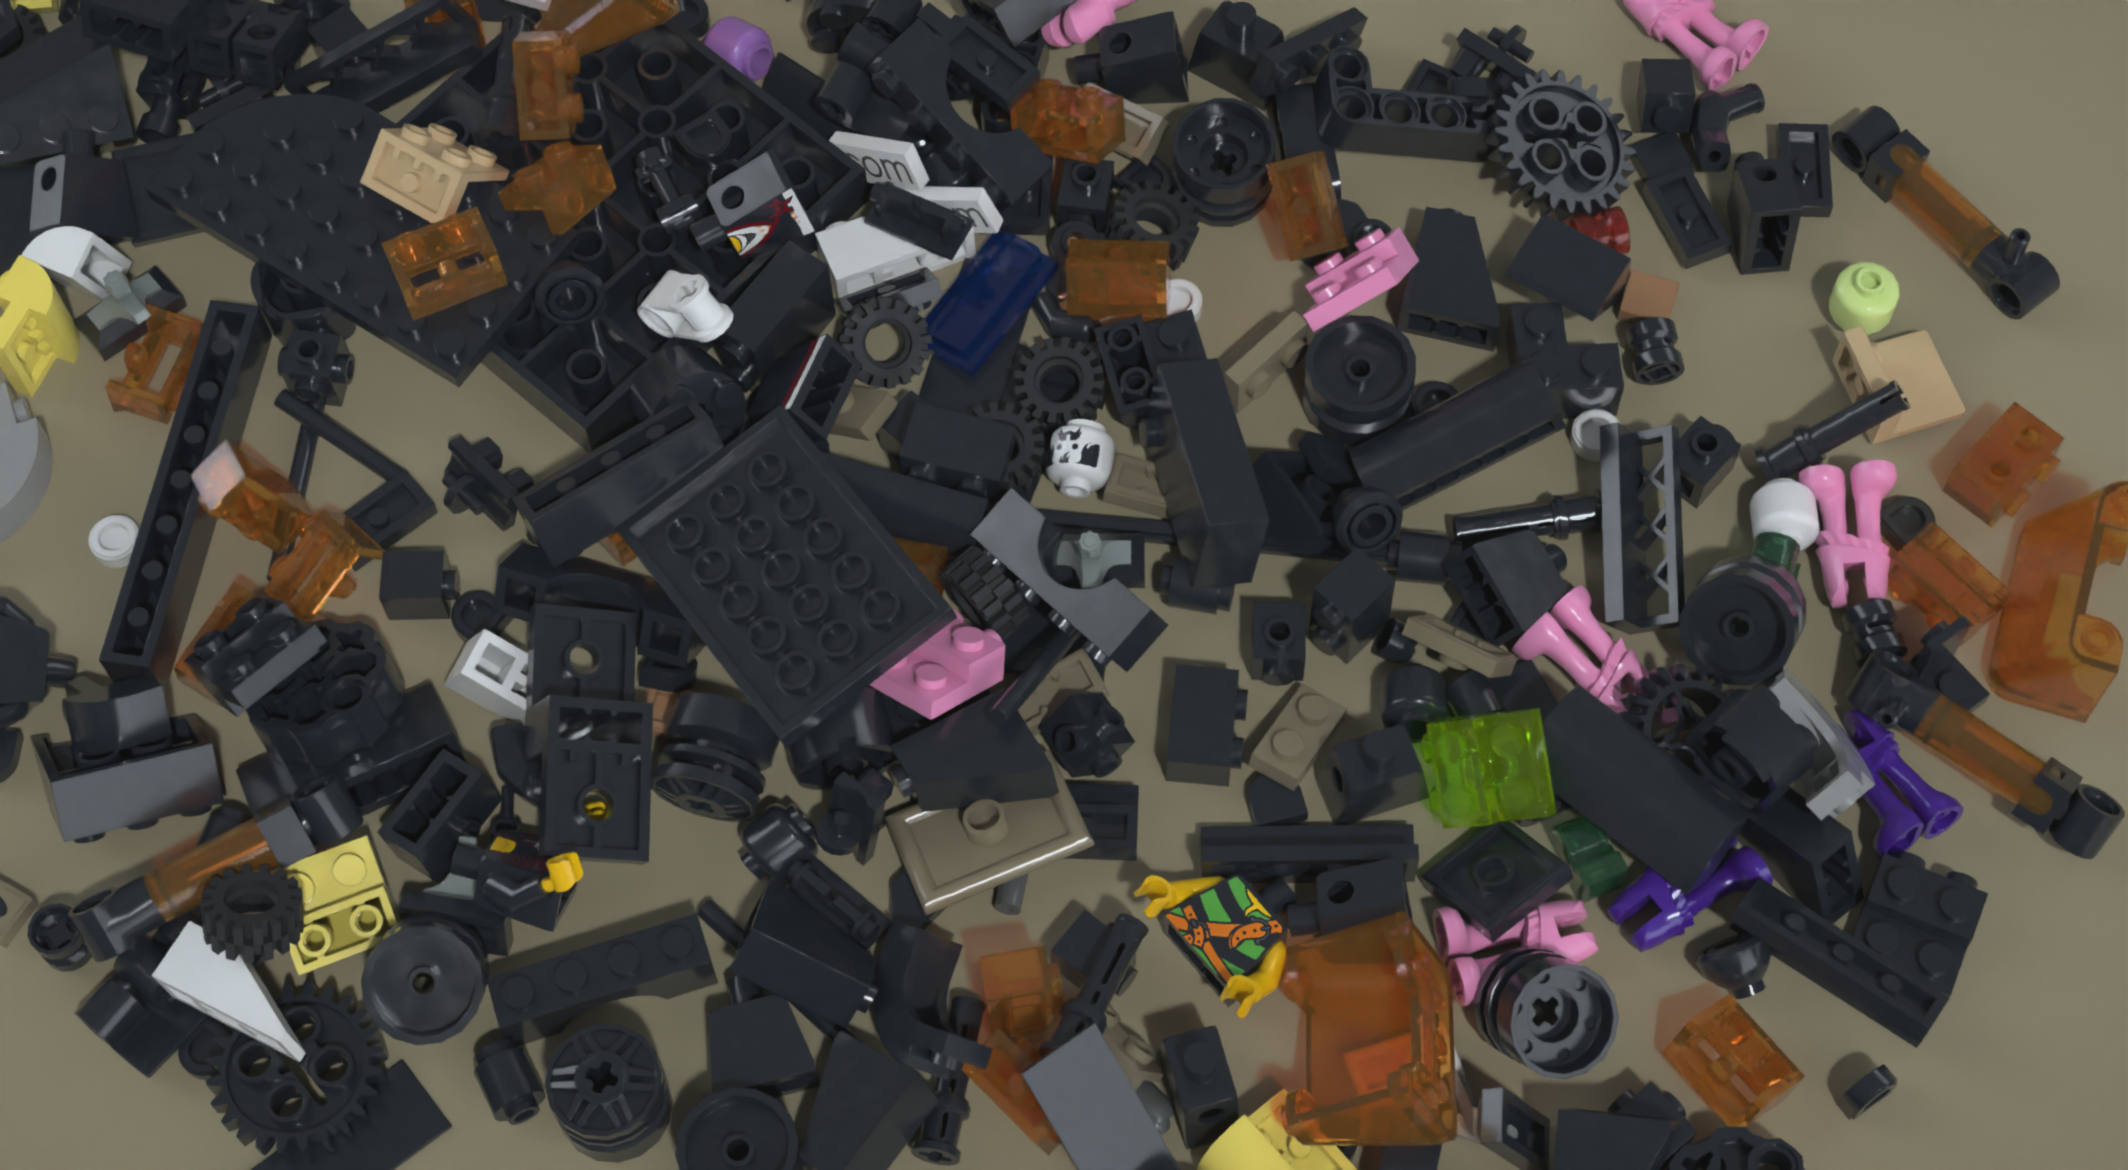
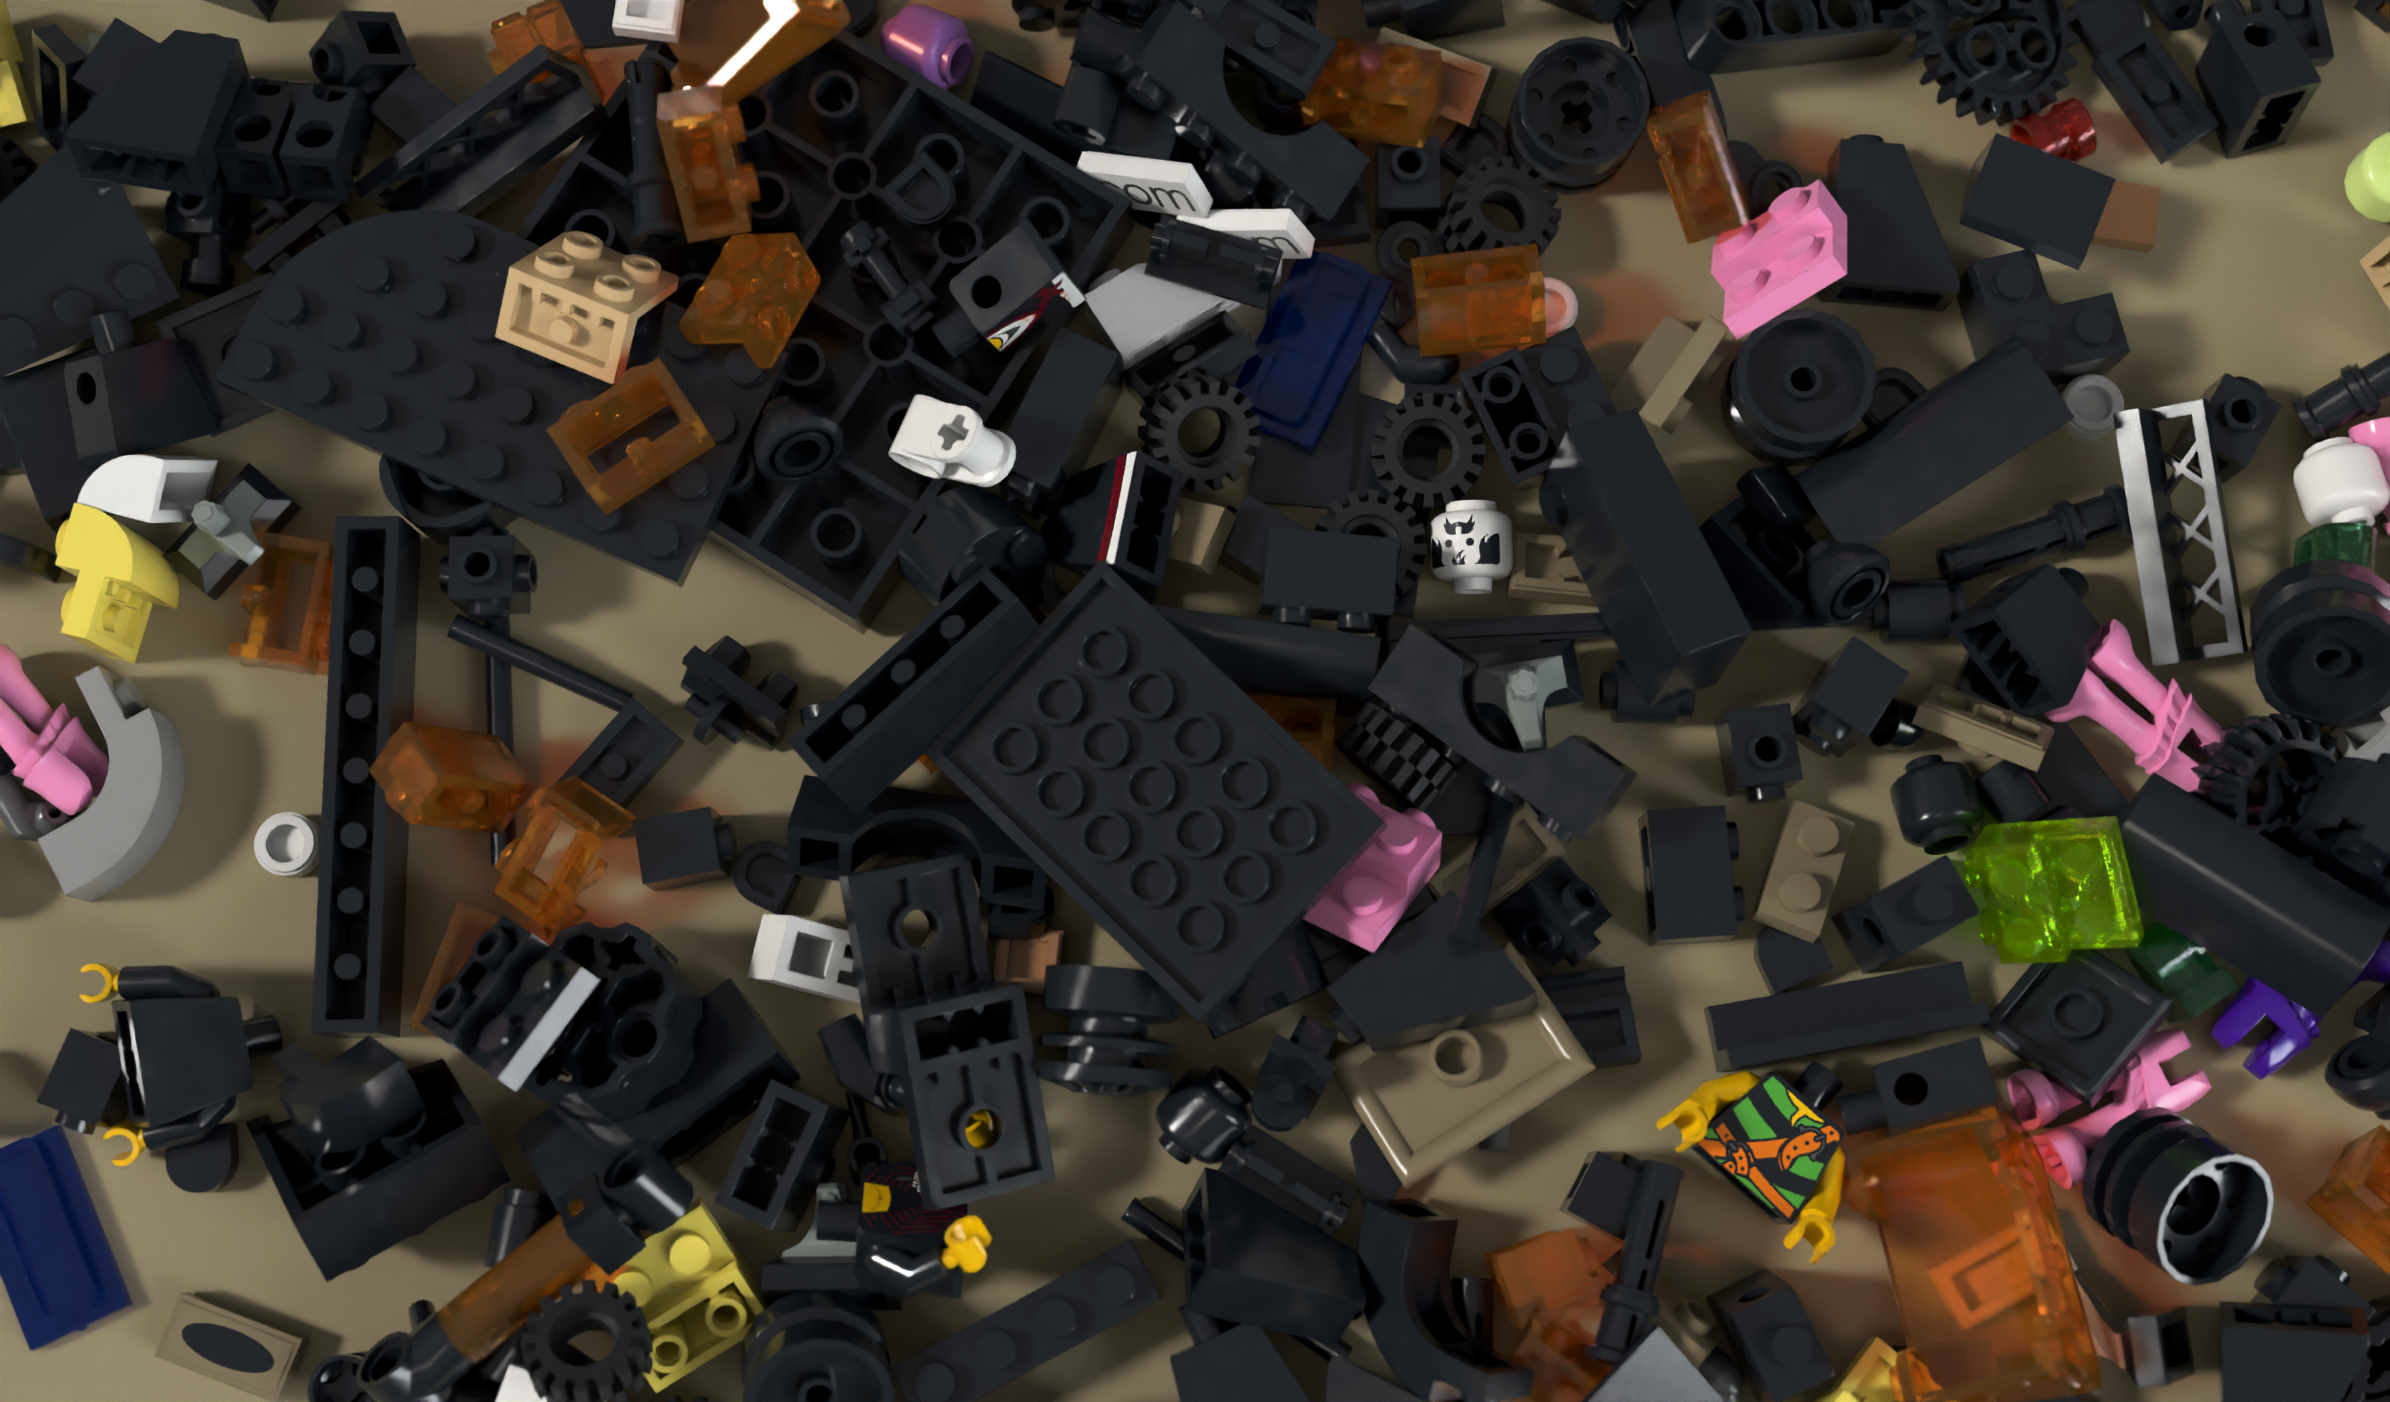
camera: 10 degrees left, 15 degrees up
(1655, 351) = (2148, 289): black wheel -> none

